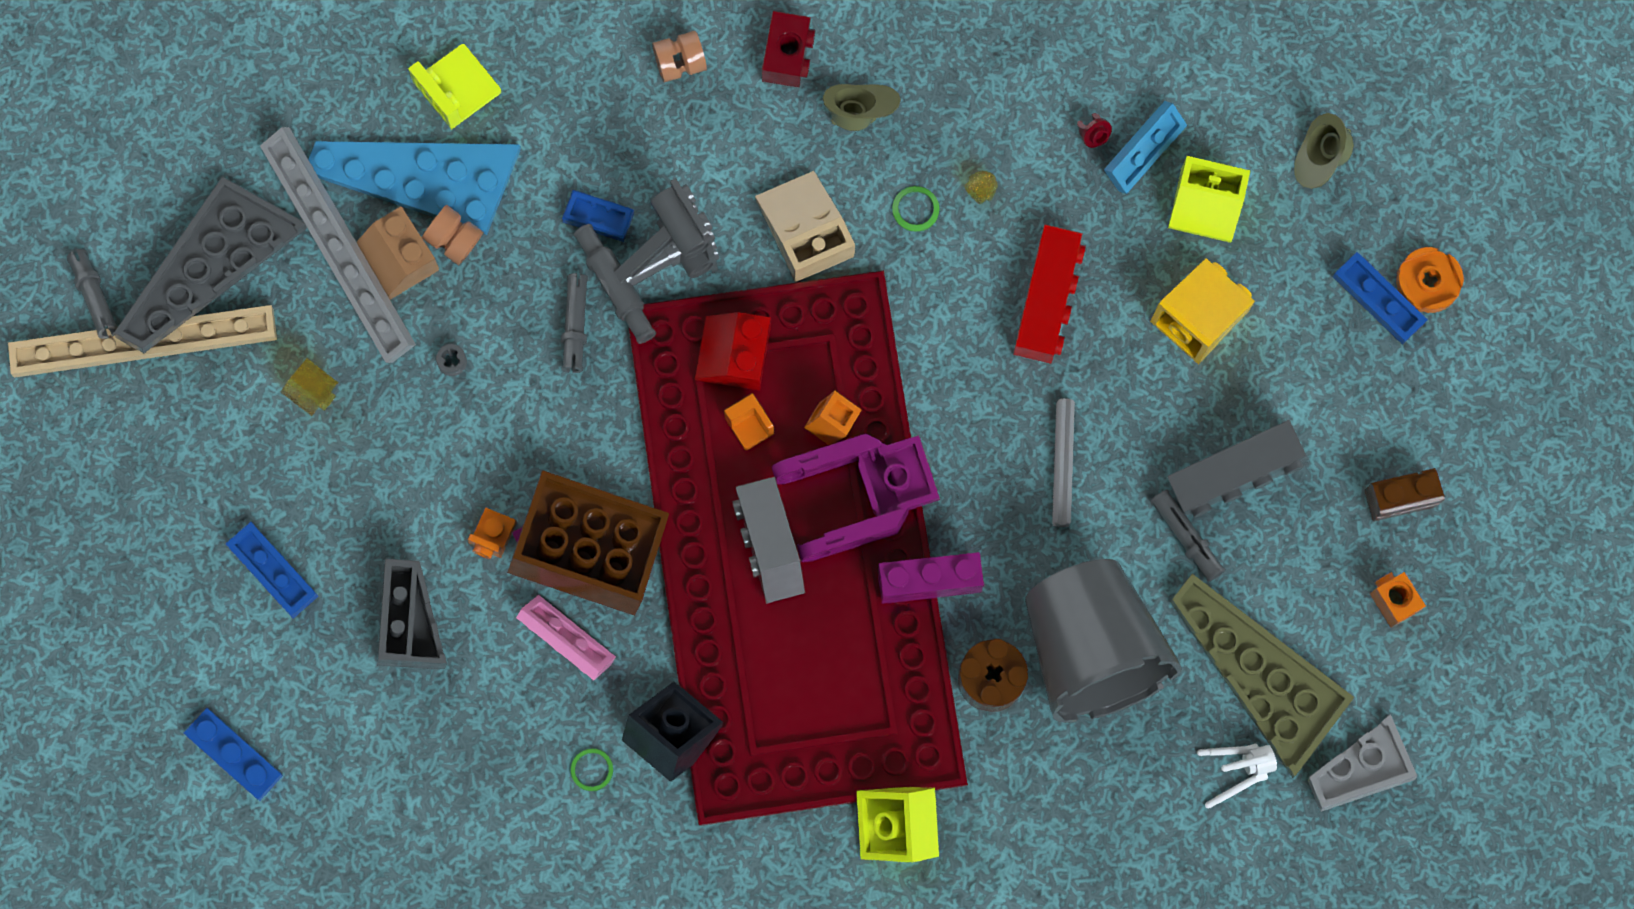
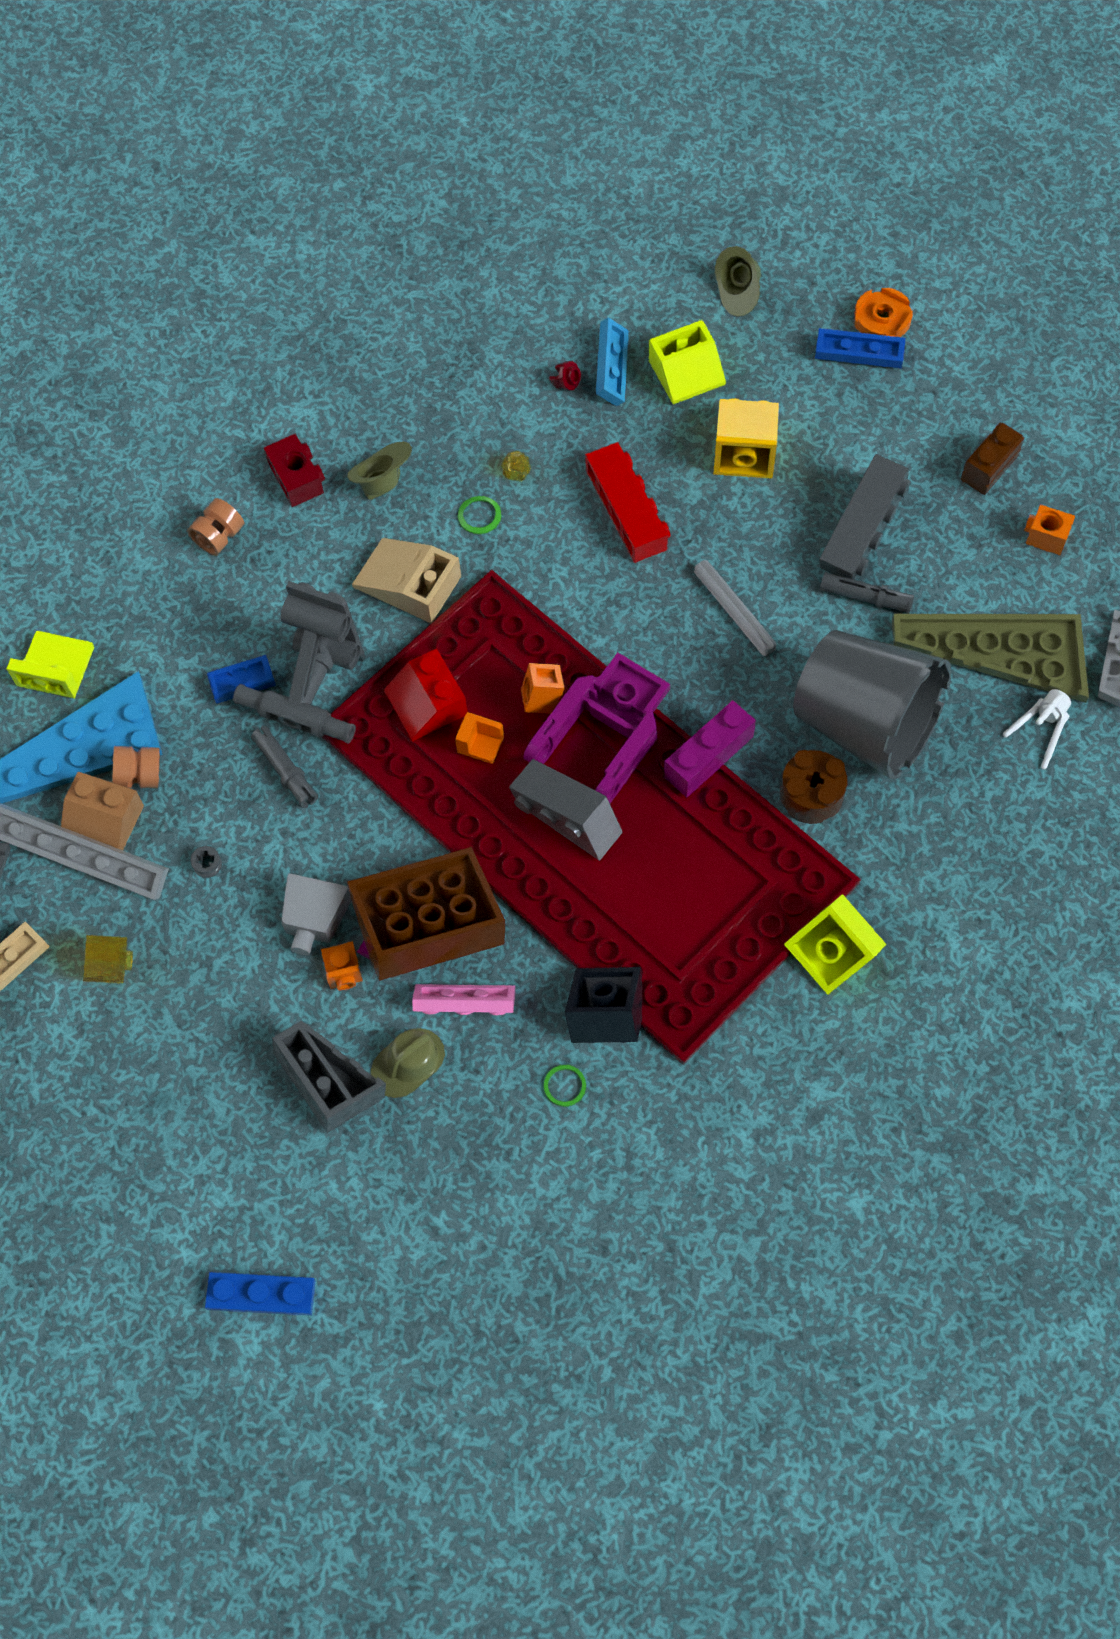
camera: 30 degrees left, 10 degrees down
(272, 570) = (181, 1123): blue plate -> none
(484, 654) = (408, 1061): none -> olive piece
(501, 469) = (312, 911): none -> light grey torso

